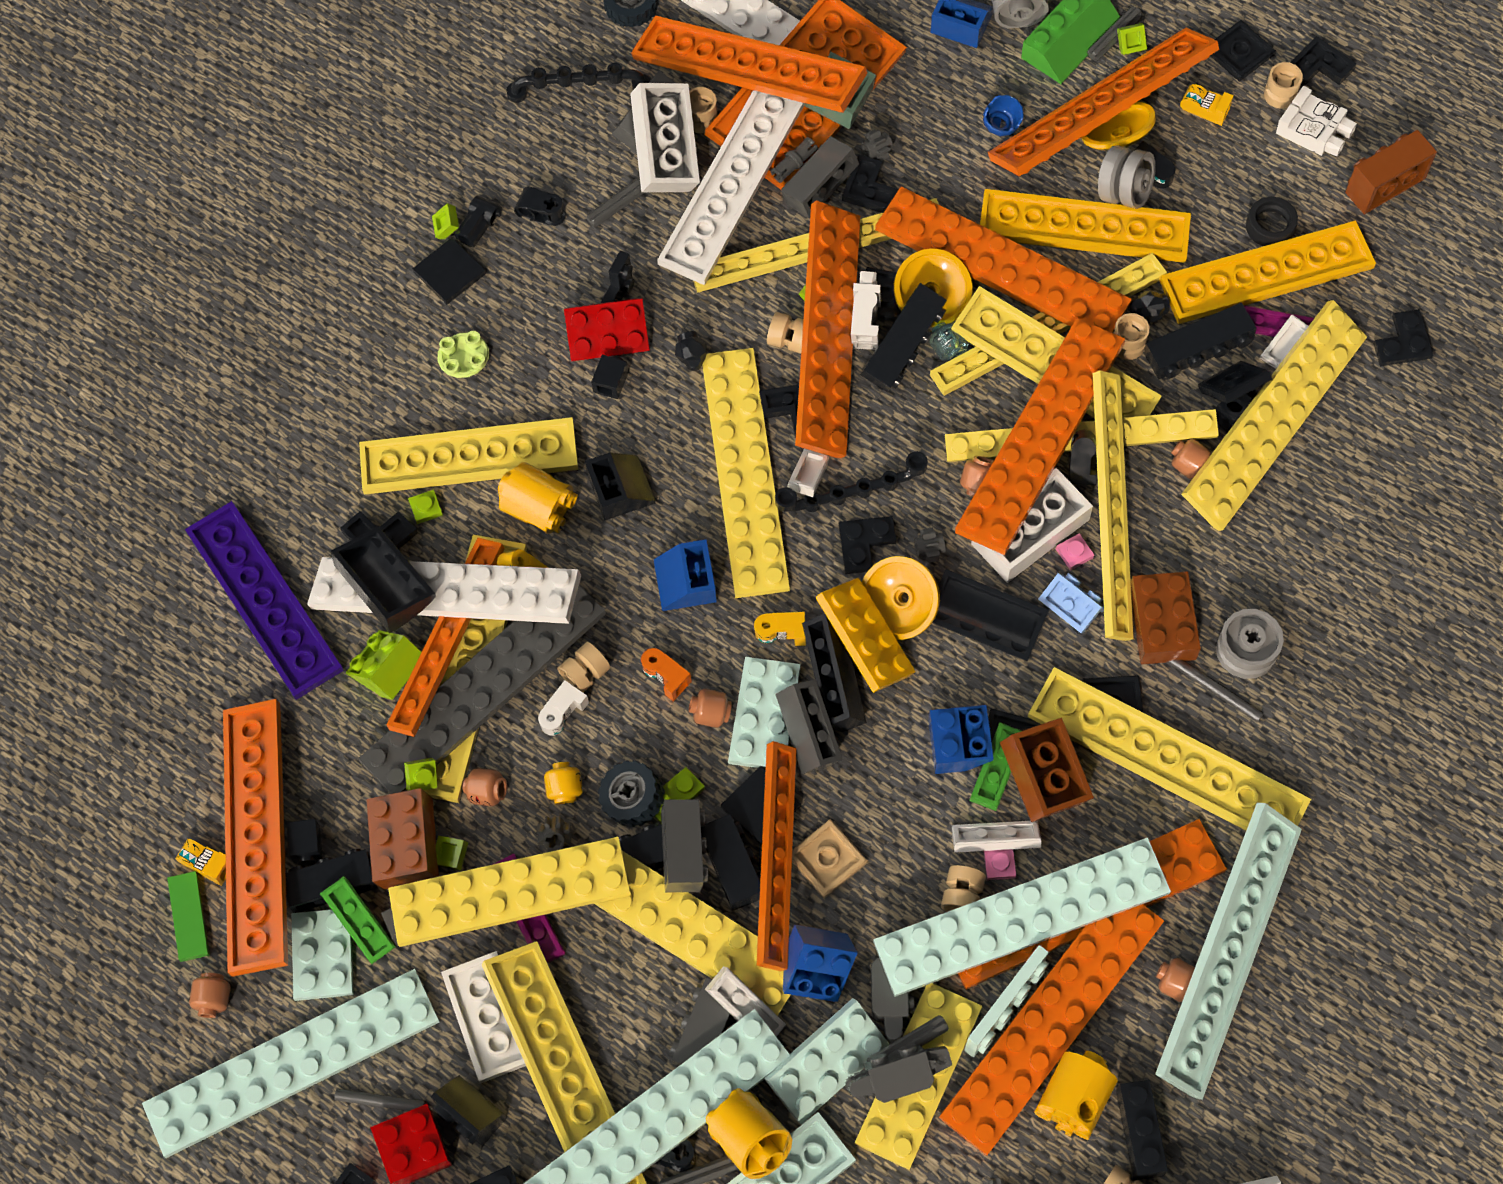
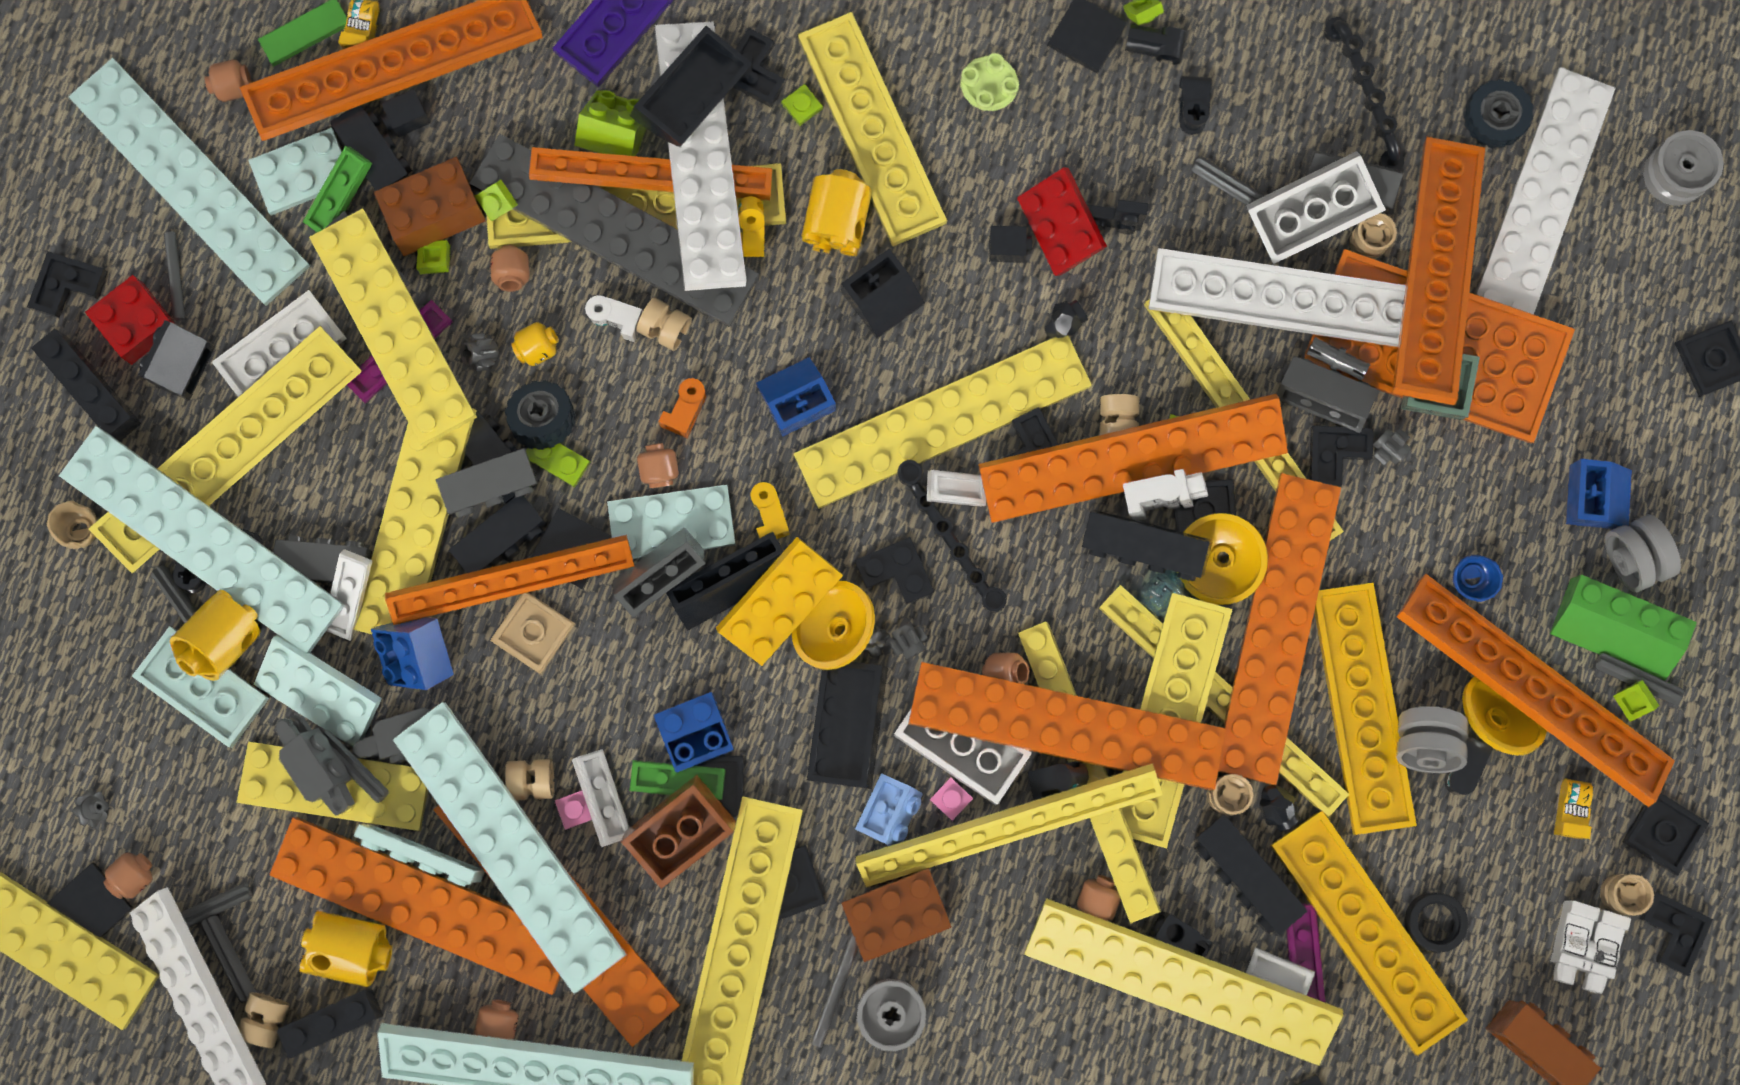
camera: 70 degrees right, 15 degrees up
(1234, 381) = (1207, 926): black tile -> none

